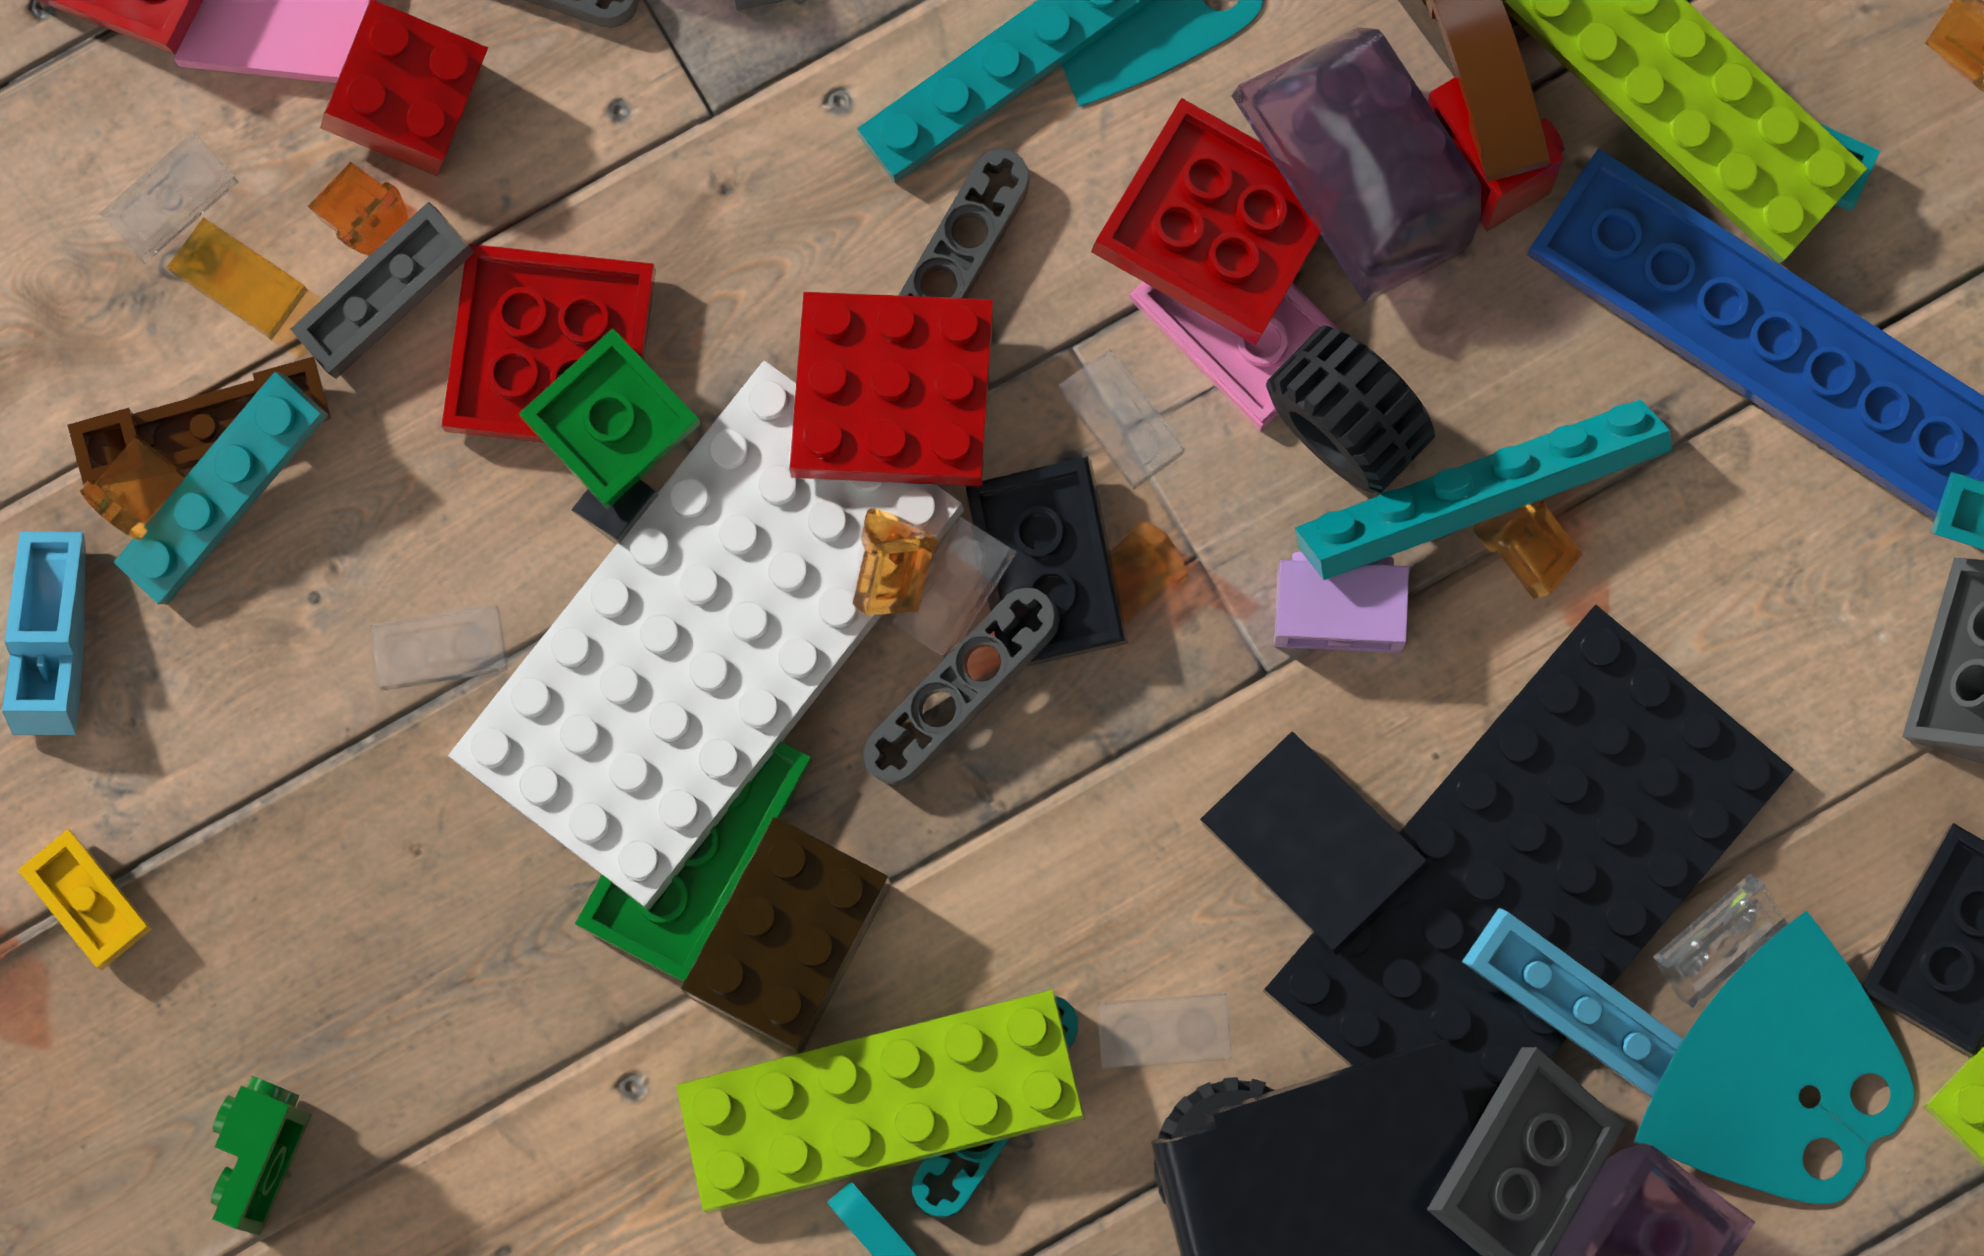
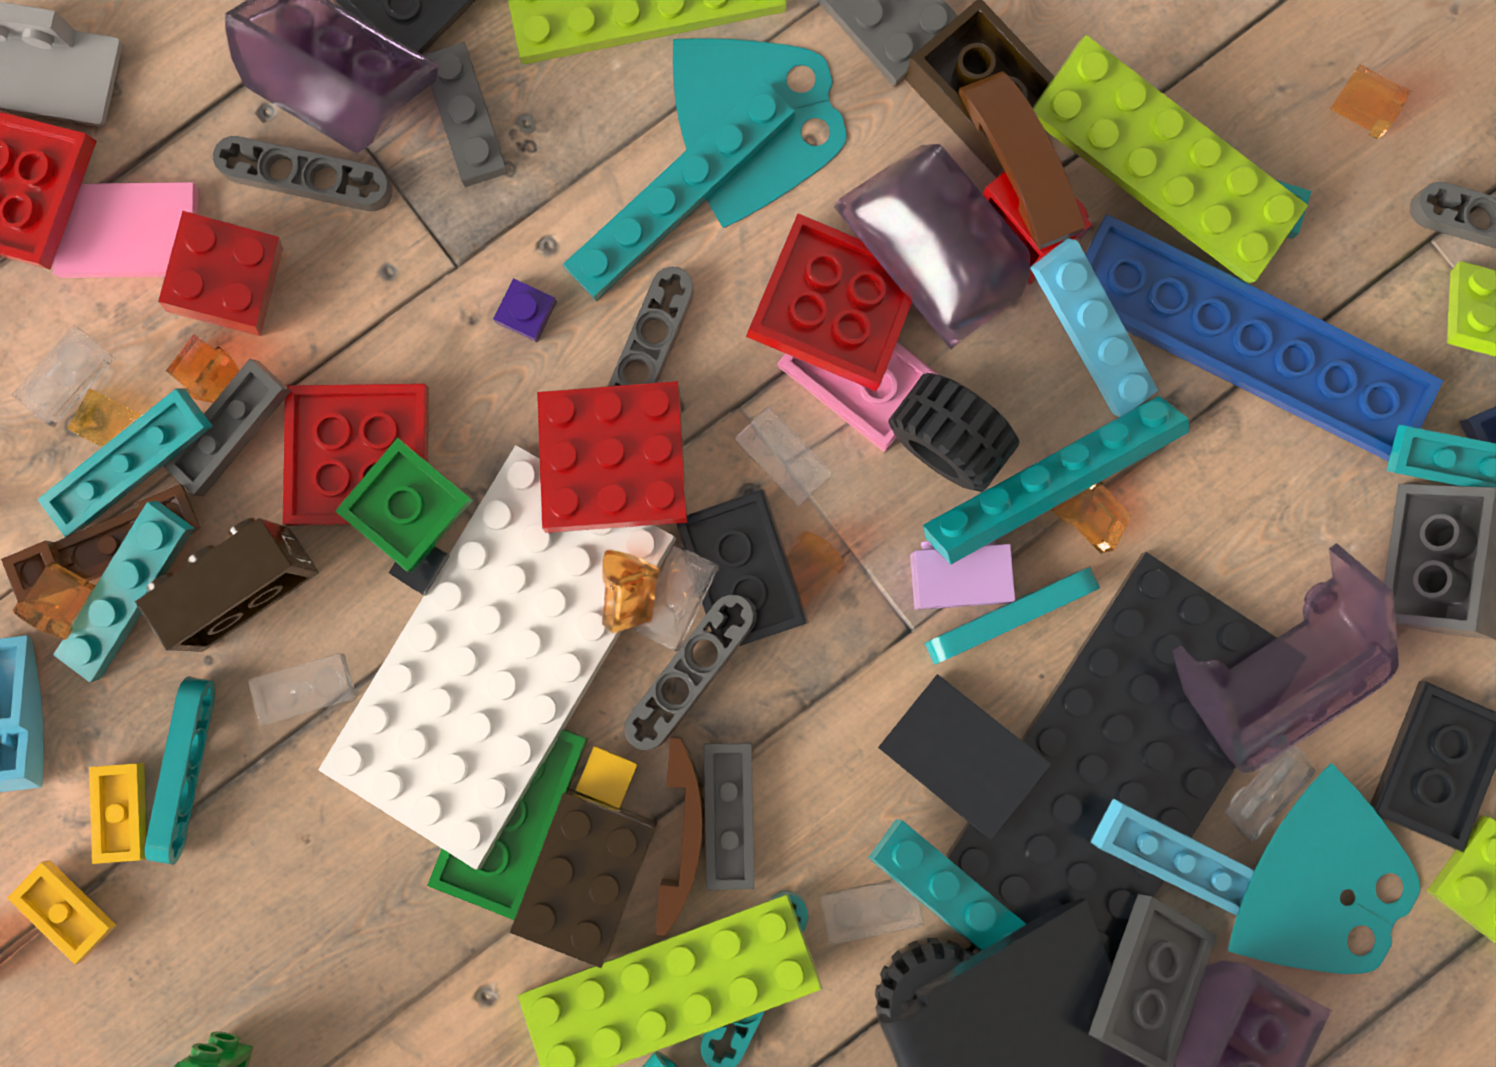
camera: 10 degrees left, 5 degrees up
(175, 779) = (118, 812): none -> yellow plate
(244, 319) = (125, 462): none -> teal plate
(264, 733) = (180, 770): none -> teal beam
(363, 494) = (225, 585): none -> dark brown brick
(798, 183) = (525, 310): none -> dark purple plate
(832, 812) = (607, 777): none -> yellow tile
(901, 976) = (674, 893): none -> reddish brown slope
(988, 883) = (728, 816): none -> dark grey plate
(1258, 1002) = (943, 887): none -> teal plate
(1402, 665) = (1012, 615): none -> teal beam
(1557, 296) = (1094, 327): none -> medium azure plate
(1775, 792) = (1303, 676): none -> clear purple windscreen

